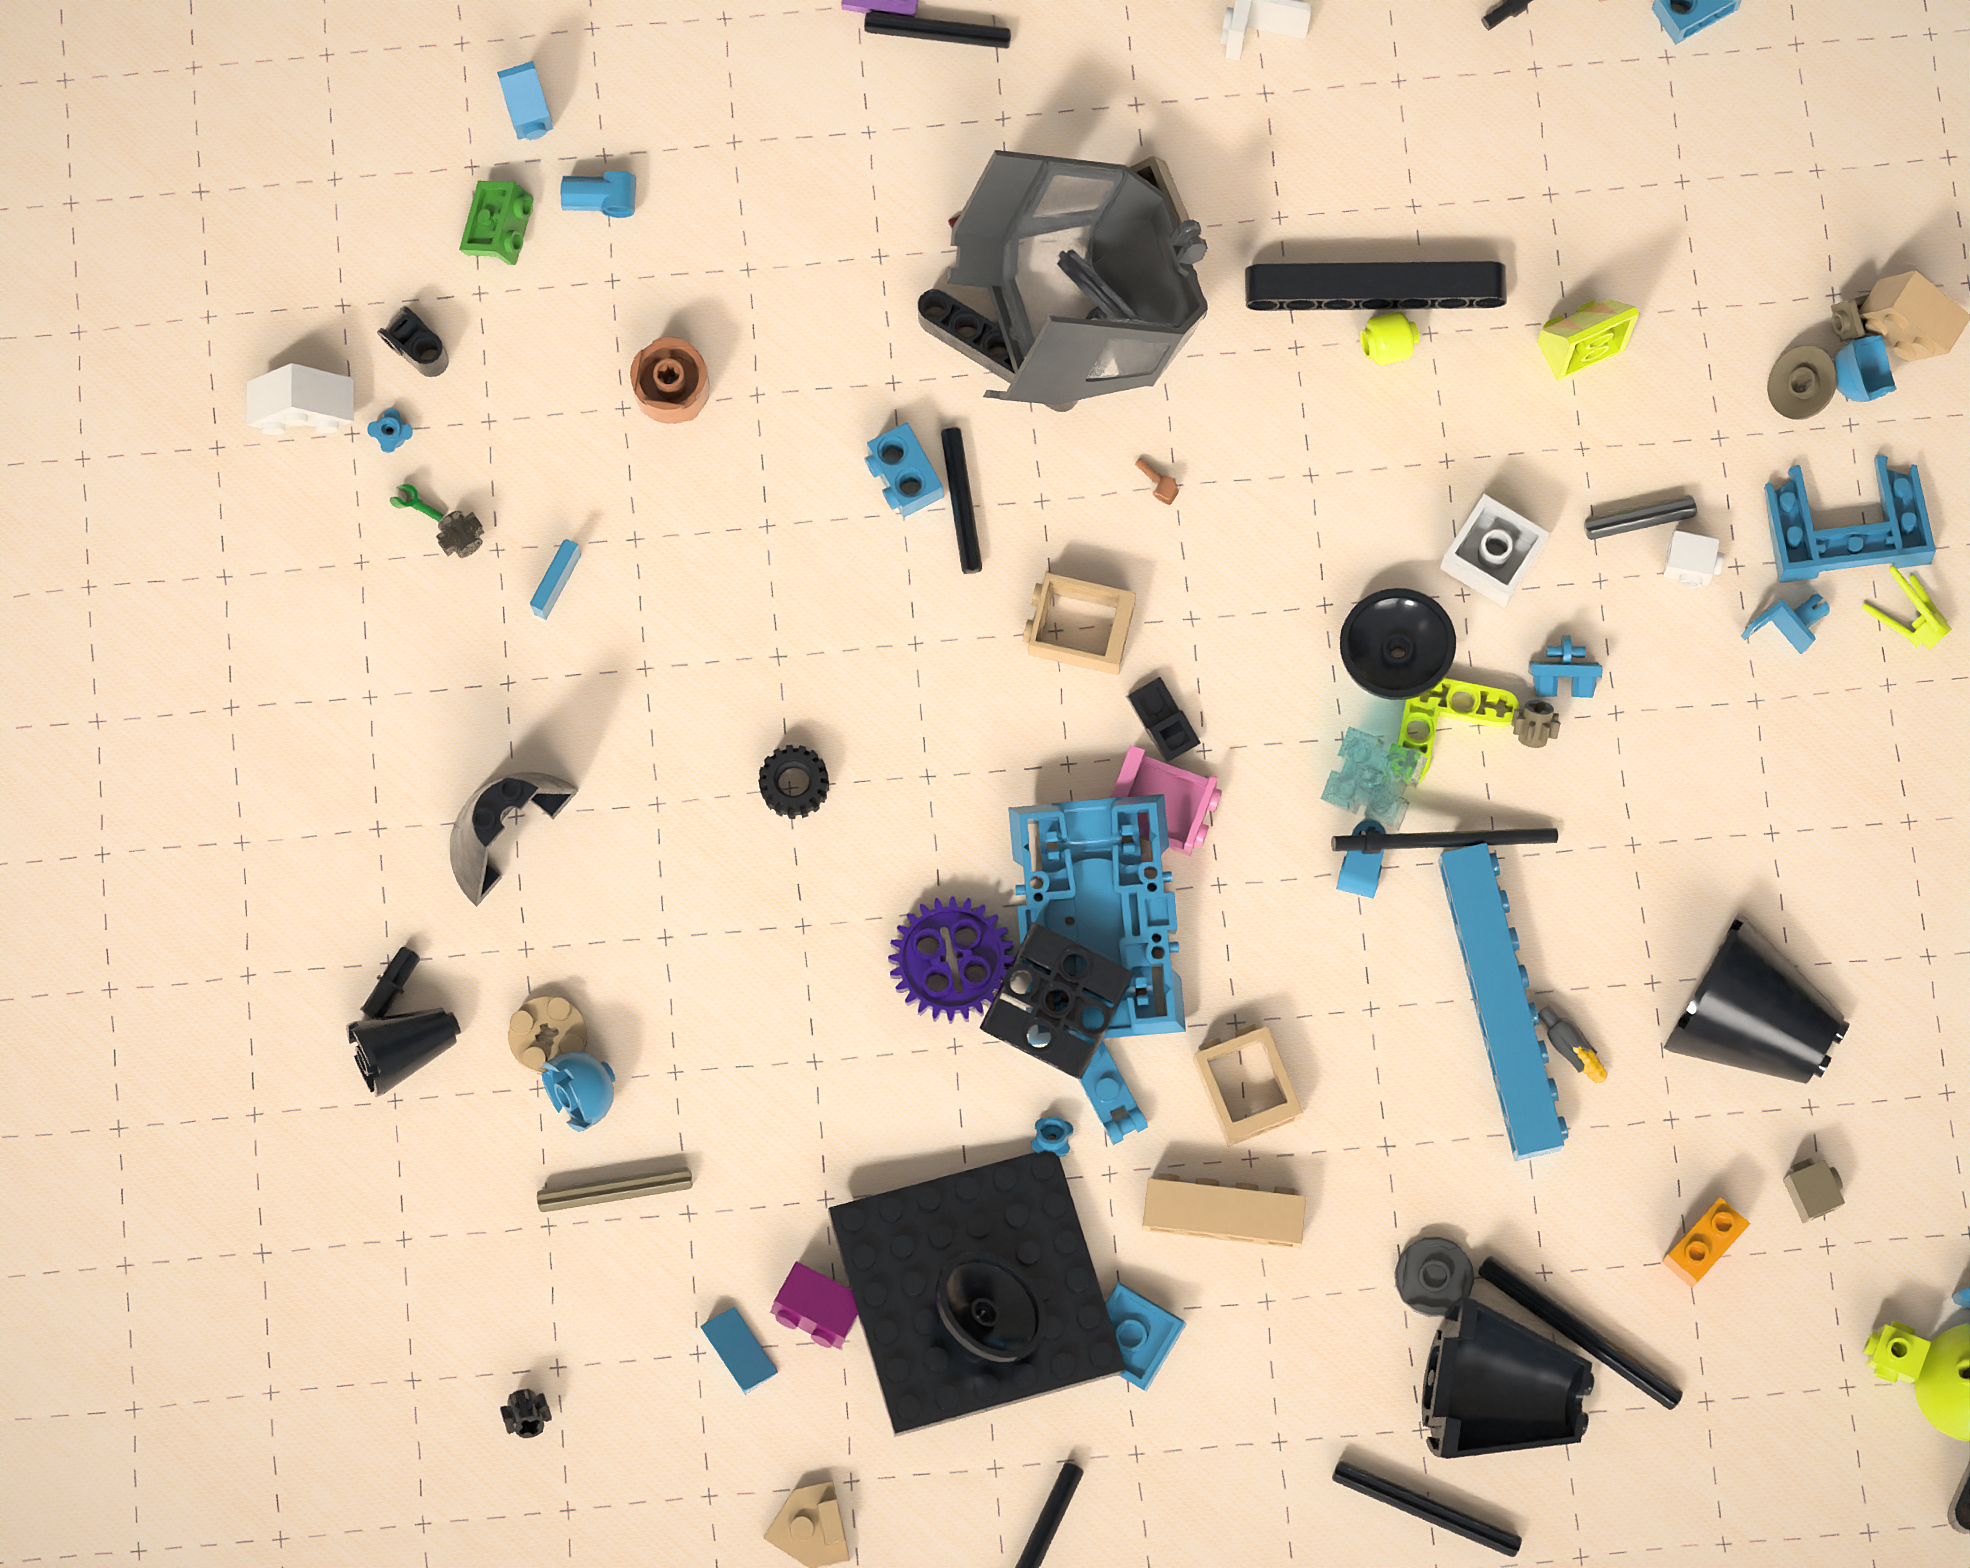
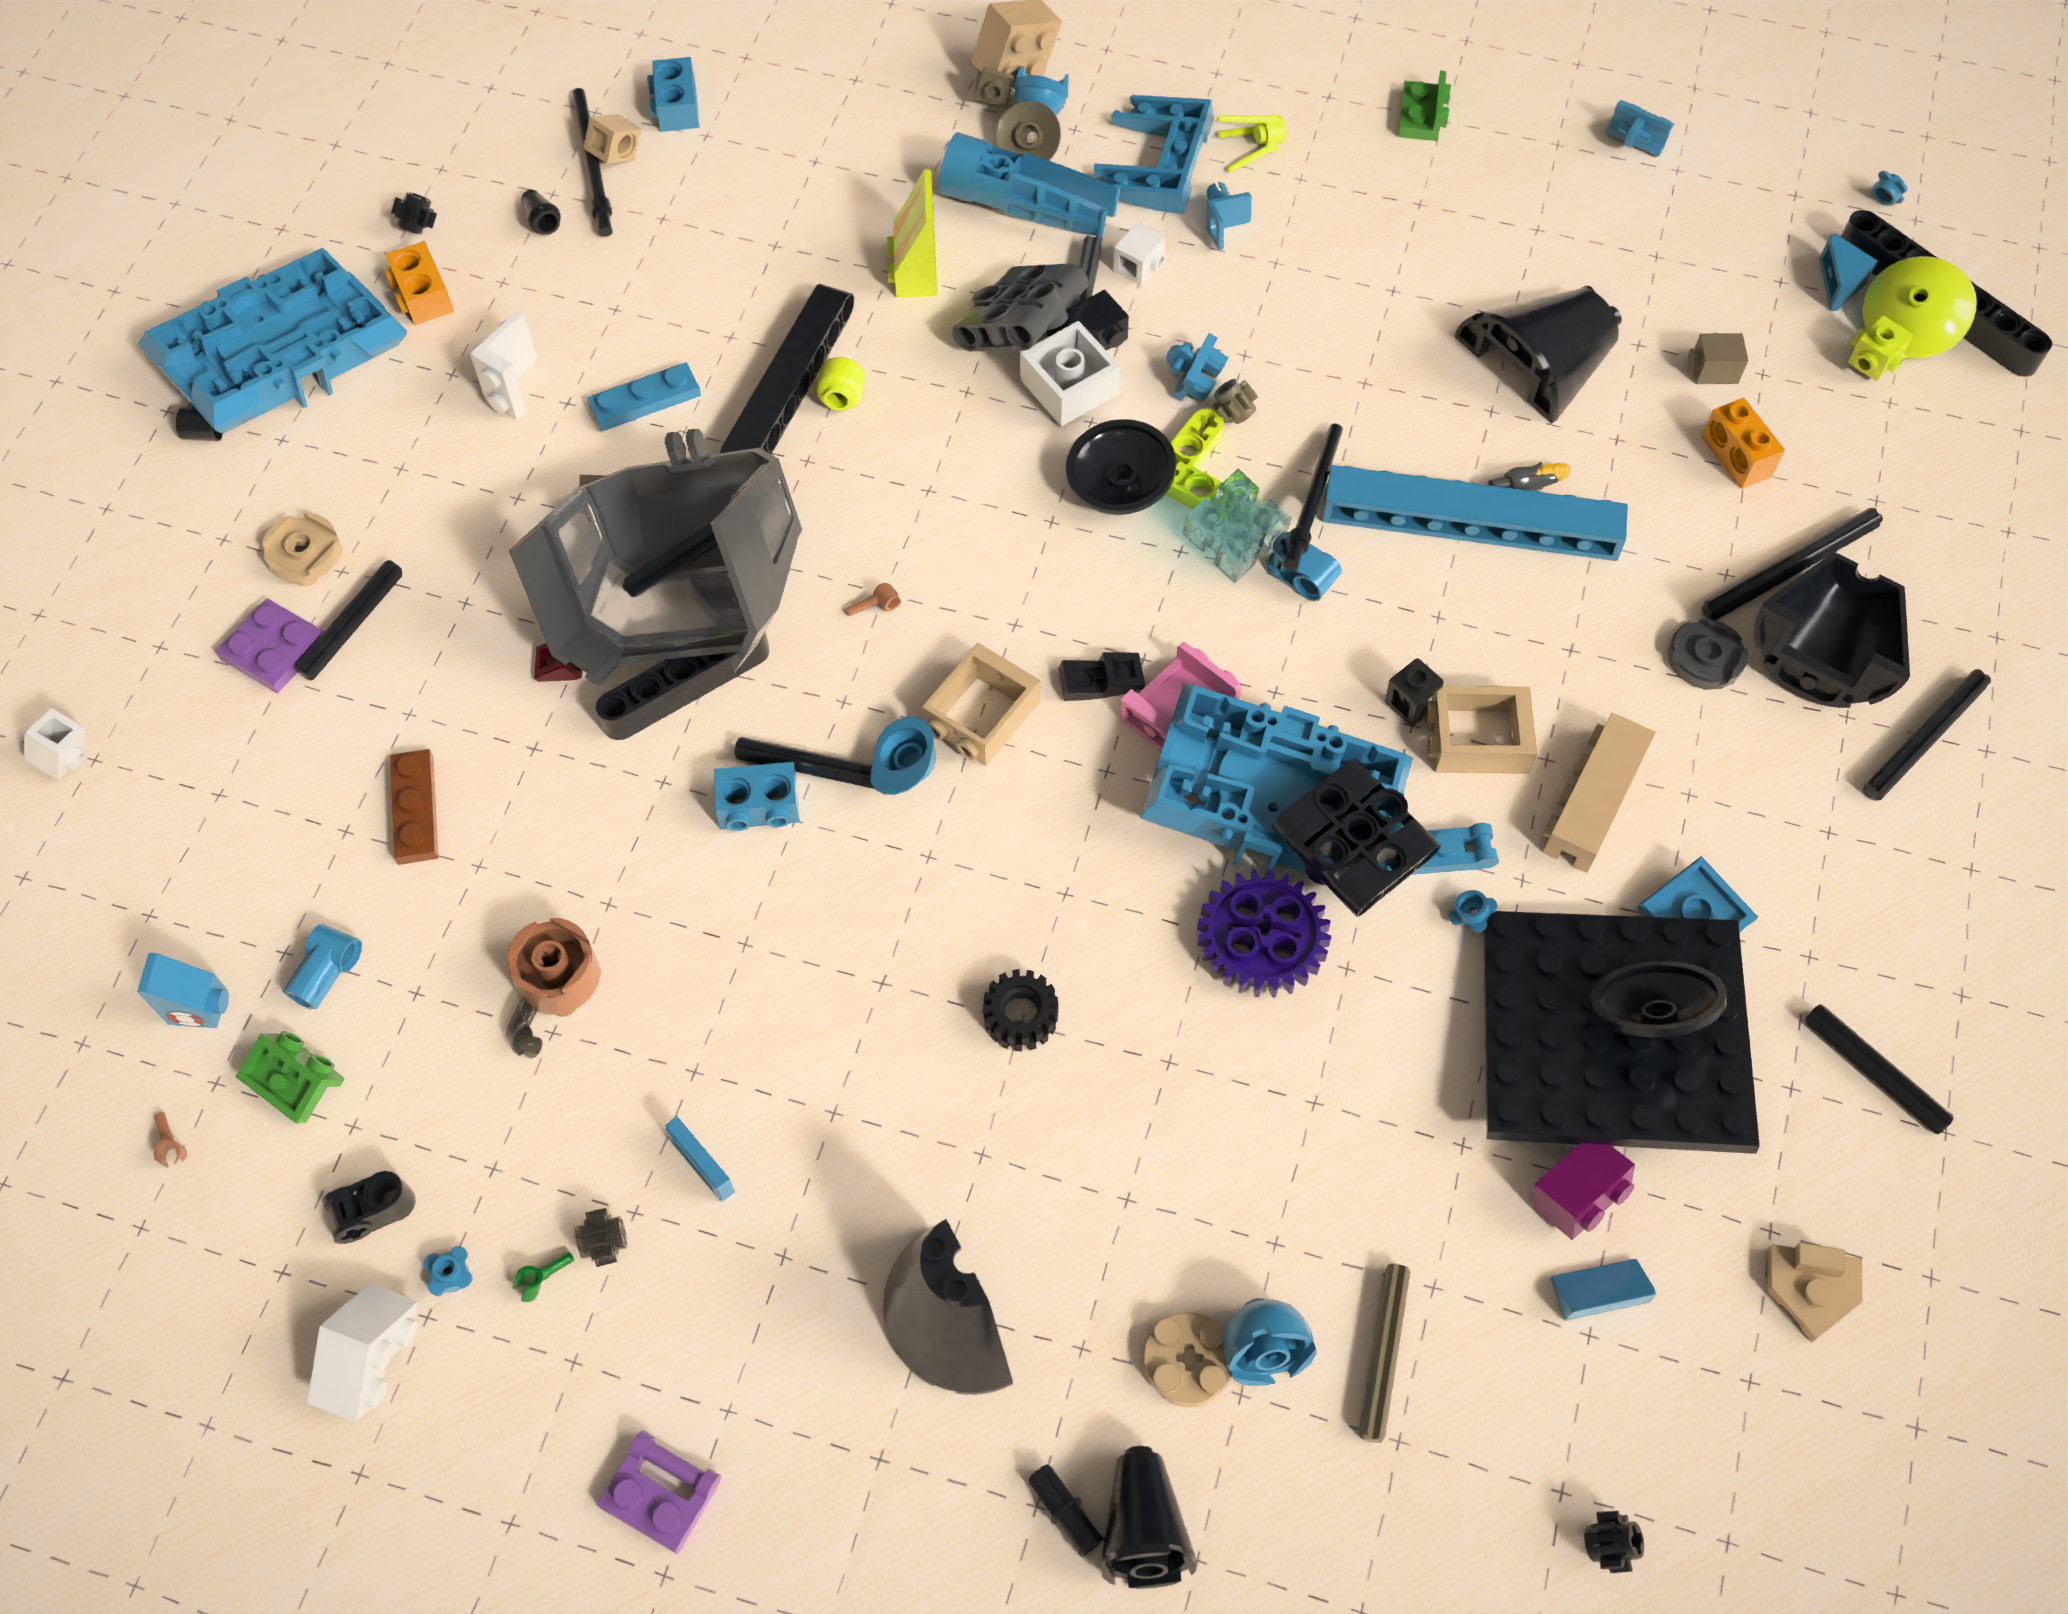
camera: 70 degrees left, 15 degrees down
(275, 672) = (652, 1507): none -> medium lavender plate
(406, 159) = (166, 1141): none -> nougat hand
(606, 383) = (519, 1031): none -> clear smoke arm
(778, 186) = (414, 807): none -> dark orange plate
(988, 578) = (903, 756): none -> dark azure piece
(1258, 1007) = (1411, 689): none -> pearl dark grey bracket
(1300, 161) = (644, 396): none -> dark azure plate
(1548, 469) = (1020, 307): none -> dark grey connector
(1573, 547) = (1102, 319): none -> black slope
(1716, 359) = (1026, 186): none -> dark azure piece

